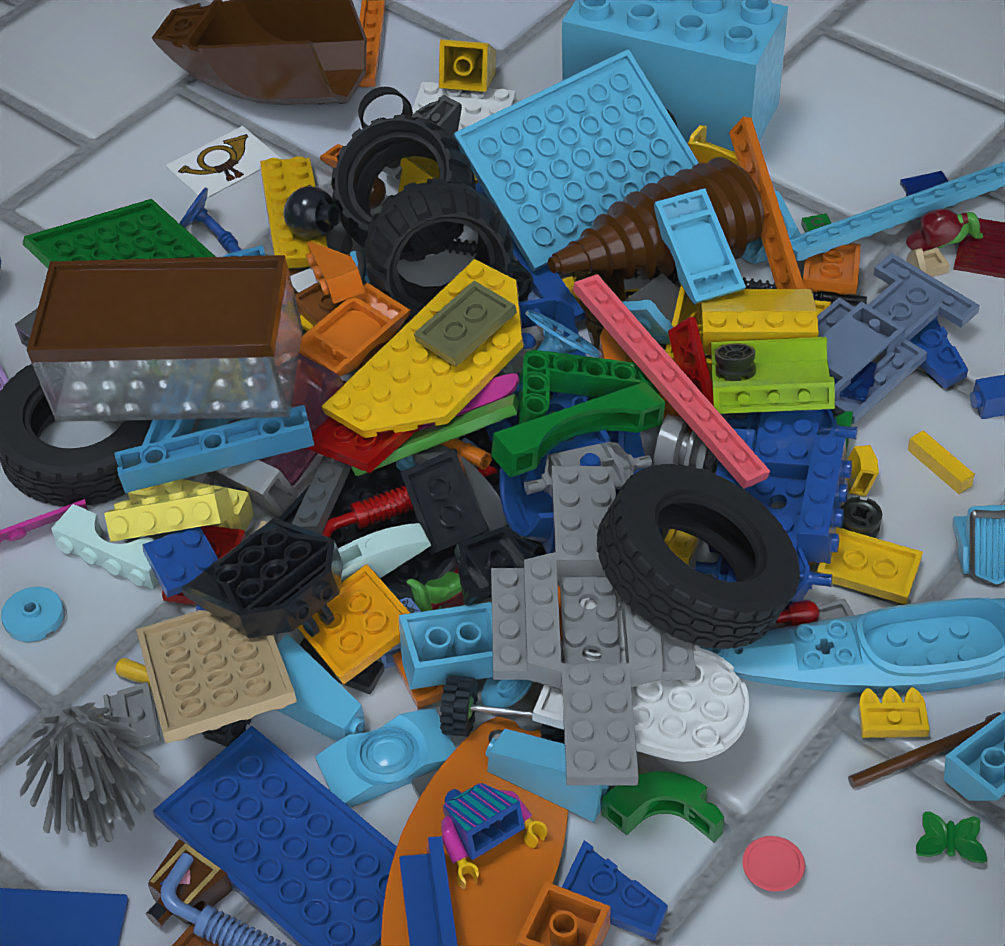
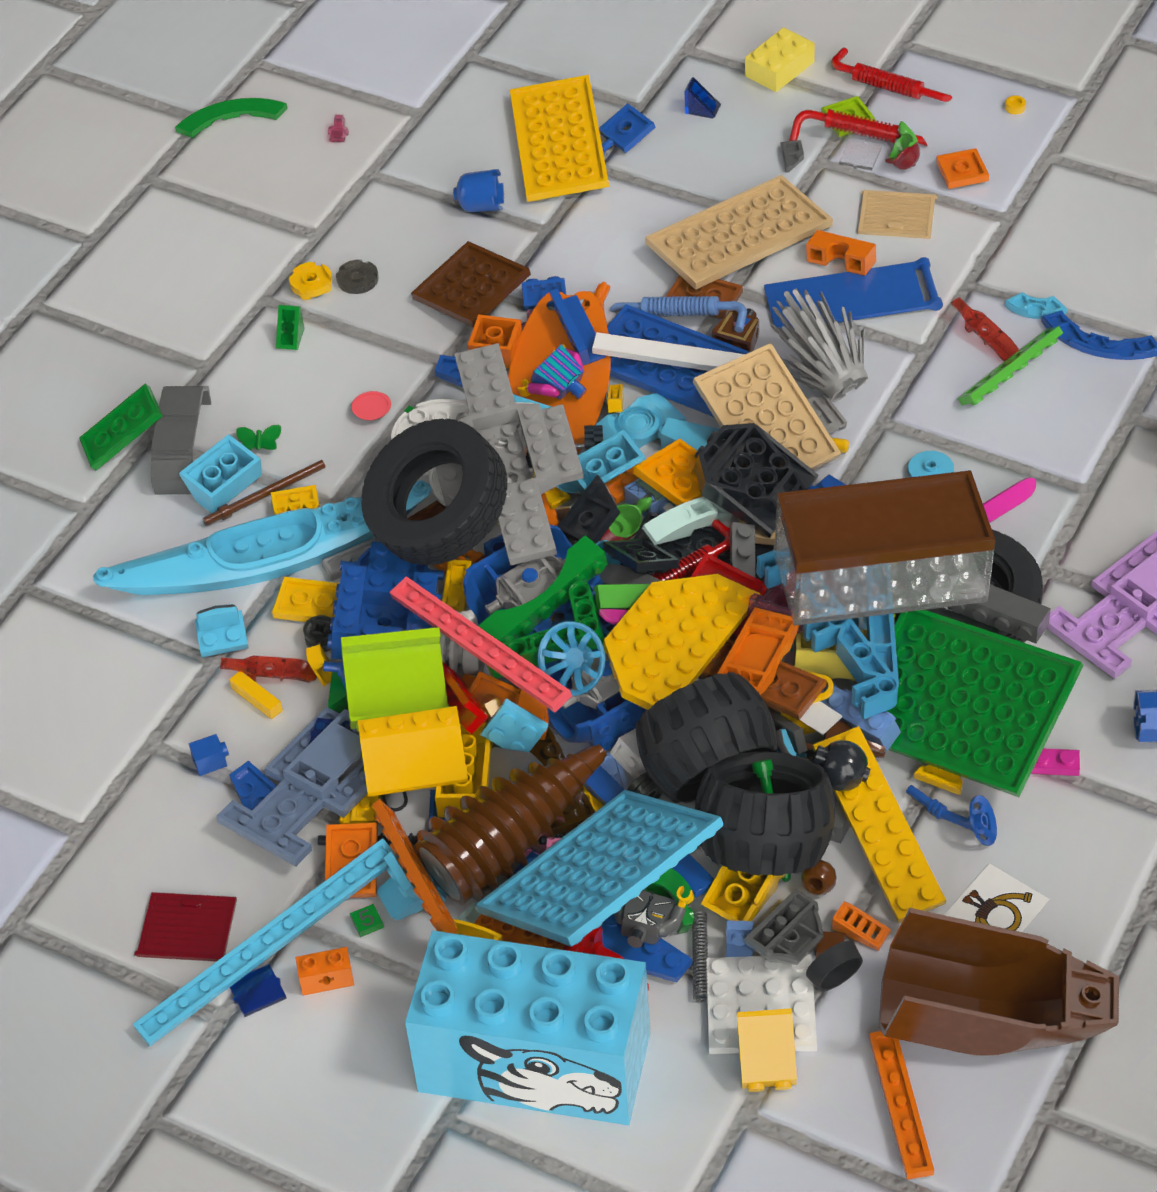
camera: 170 degrees right, 0 degrees up
(291, 831) = (661, 352): none -> white tile
(334, 272) = (788, 688): orange slope -> none
(405, 789) = (615, 398): none -> yellow piece
(465, 323) = (652, 635): olive plate -> none
(698, 246) = (467, 768): medium azure slope -> none
(735, 361) = (429, 684): pearl dark grey wheel -> none
(800, 613) = (359, 546): red cylinder -> none
(862, 181) = (324, 971): none -> orange brick
(929, 261) = (261, 893): tan tile -> none
(940, 482) = (281, 667): none -> clear red piece
(943, 228) = (241, 919): dark red hair -> none

